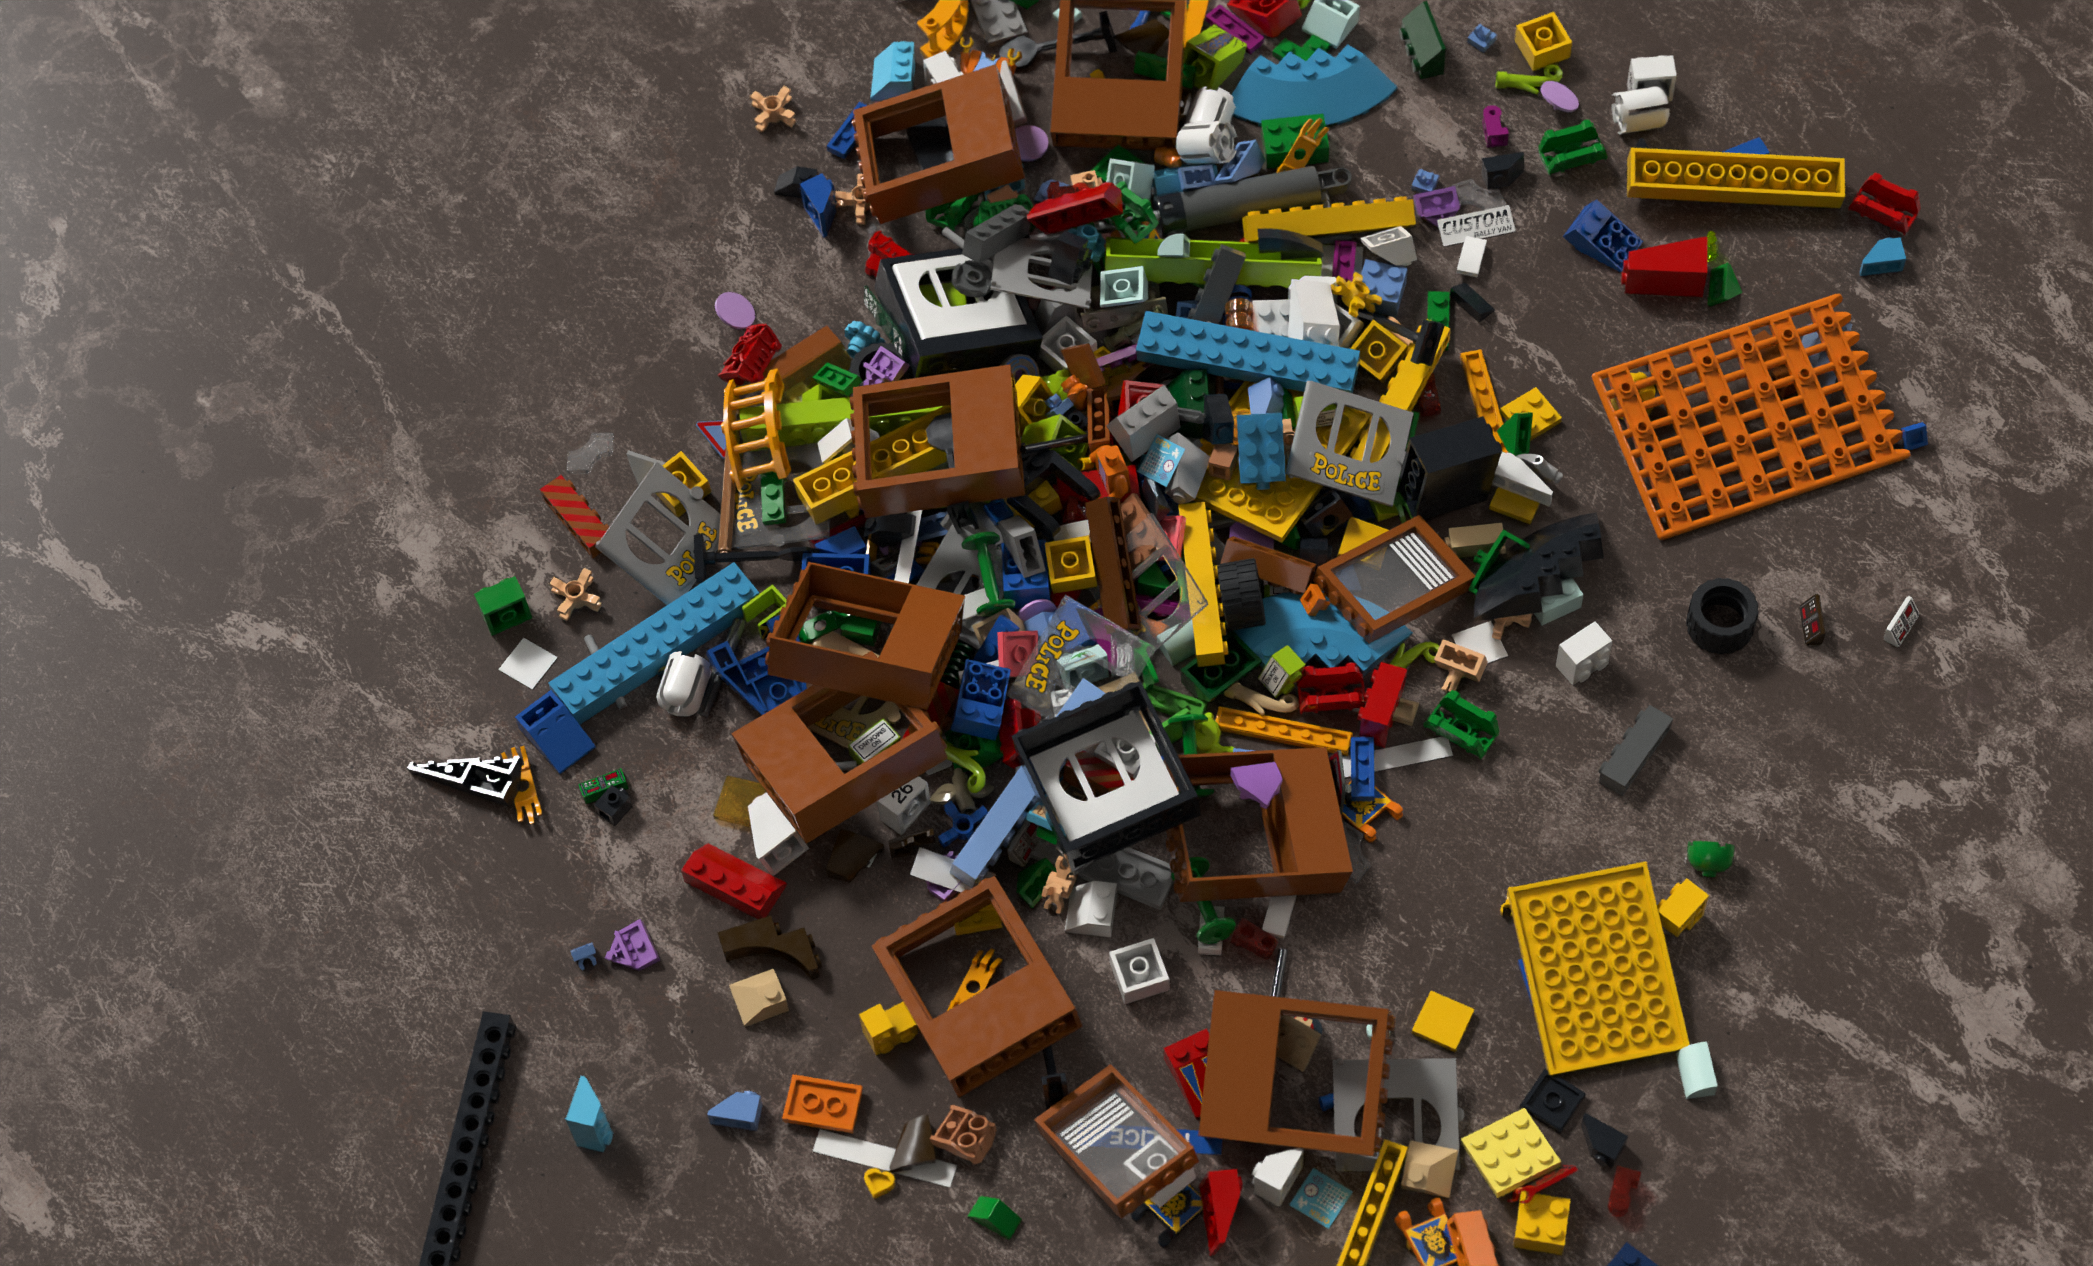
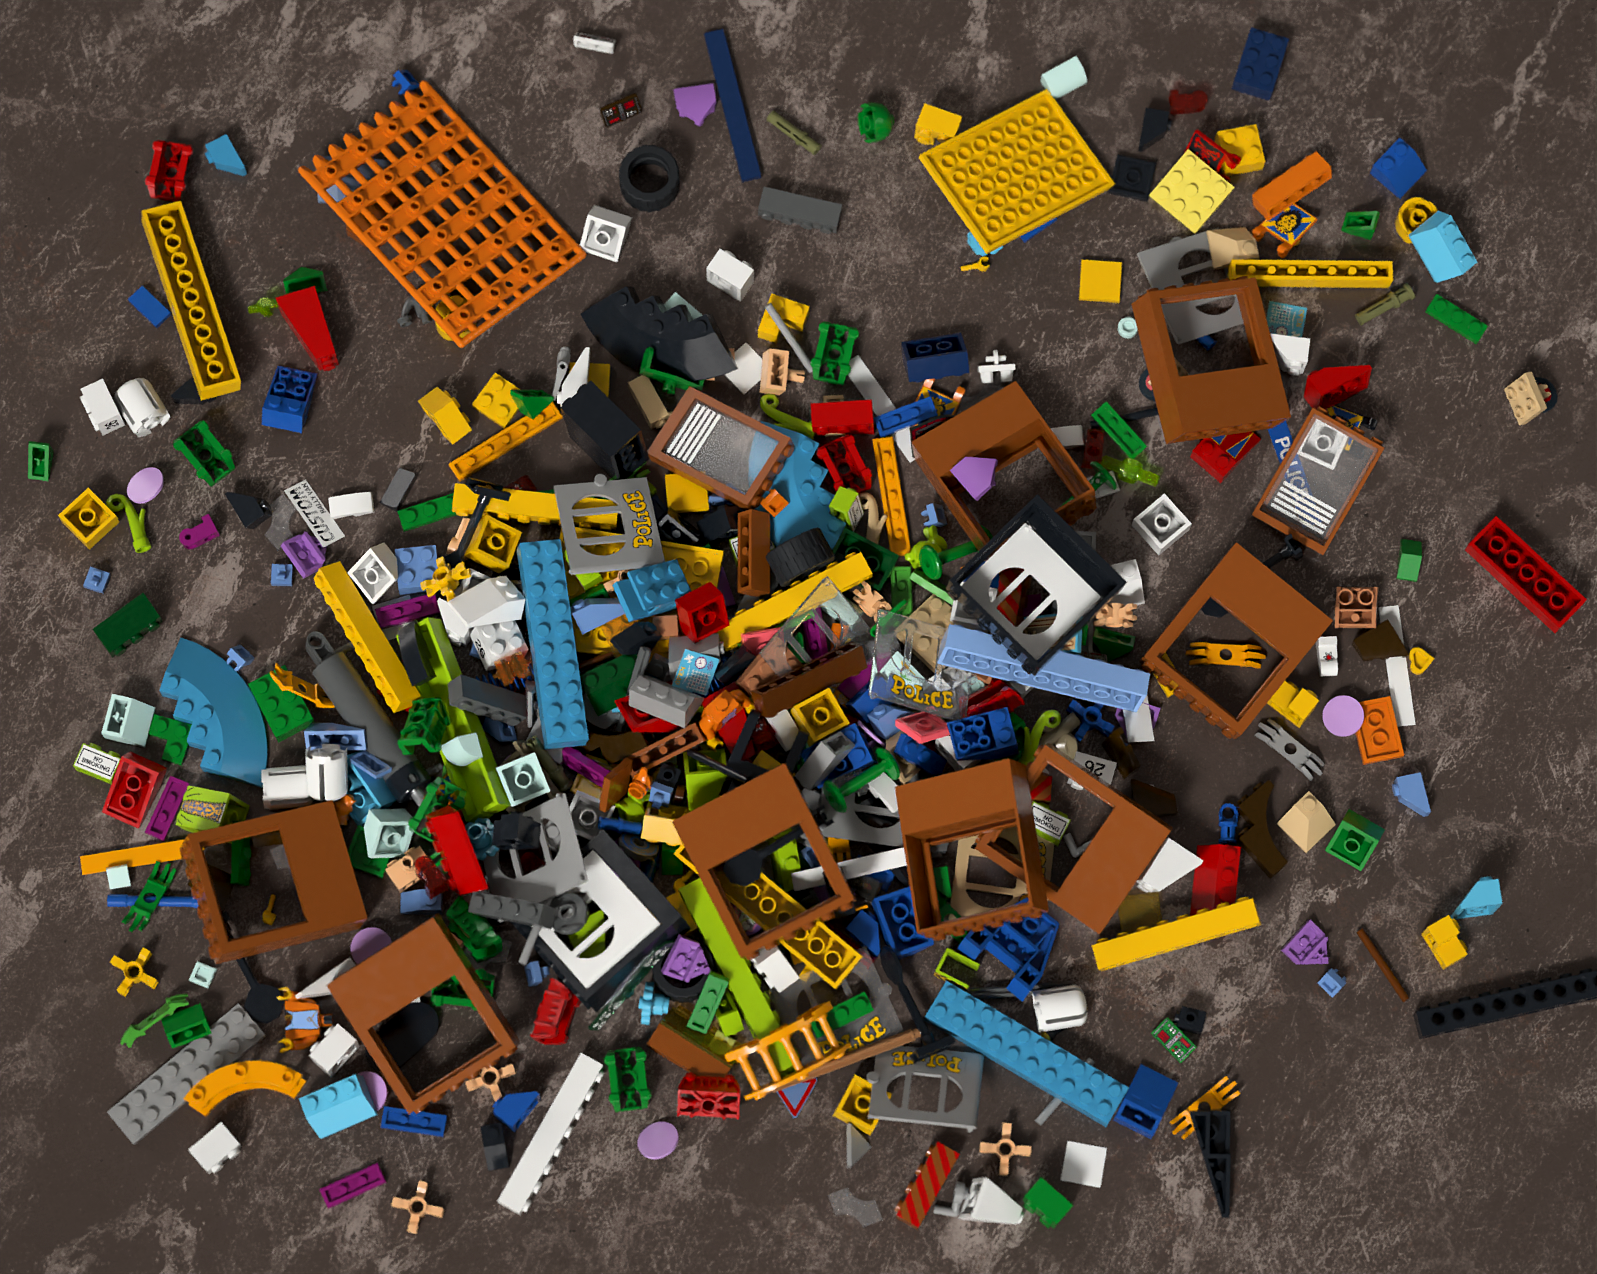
camera: 120 degrees left, 15 degrees up
(529, 558) = (989, 1204): none -> white slope
(554, 540) = (960, 1194): none -> light grey plate
(562, 1077) = (1443, 941): none -> yellow brick
(578, 1012) = (1382, 965): none -> reddish brown bar
(699, 814) = (1176, 934): none -> yellow brick
(718, 1034) = (1355, 840): none -> green slope
(785, 230) = (550, 1134): none -> white brick
(792, 916) = (1228, 824): none -> blue connector
(808, 294) = (616, 1076): none -> green piece
(819, 70) = (352, 1185): none -> magenta tile
(833, 1020) = (1299, 757): none -> light grey piece
(852, 1073) = (1343, 716): none -> lavender piece
(924, 1086) = (1327, 656): none -> white leg
(1044, 362) = (619, 825): none -> blue pin
(1172, 661) = (870, 601): none -> light nougat pin
(1211, 225) = (432, 721): none -> green piece
(1213, 967) = (1130, 470): none -> clear neon green axle
(1219, 484) = (702, 612): none -> red brick
(1262, 969) = (1118, 430): none -> green plate
(1356, 123) = (240, 656): none -> medium blue tile
(1385, 876) = (986, 371): none -> white hips
(1414, 813) = (935, 357): none -> dark blue brick
(1491, 684) = (789, 337): none -> light grey bar
(1523, 690) = (792, 313): none -> yellow brick
(1531, 352) = (445, 413): none -> yellow brick
(1619, 23) = (39, 460): none -> green slope
(1678, 561) = (605, 233): none -> white slope
(1721, 780) = (801, 138): none -> olive pin
(1782, 730) = (732, 105): none -> dark blue tile
(1798, 695) = (695, 102): none -> medium lavender slope

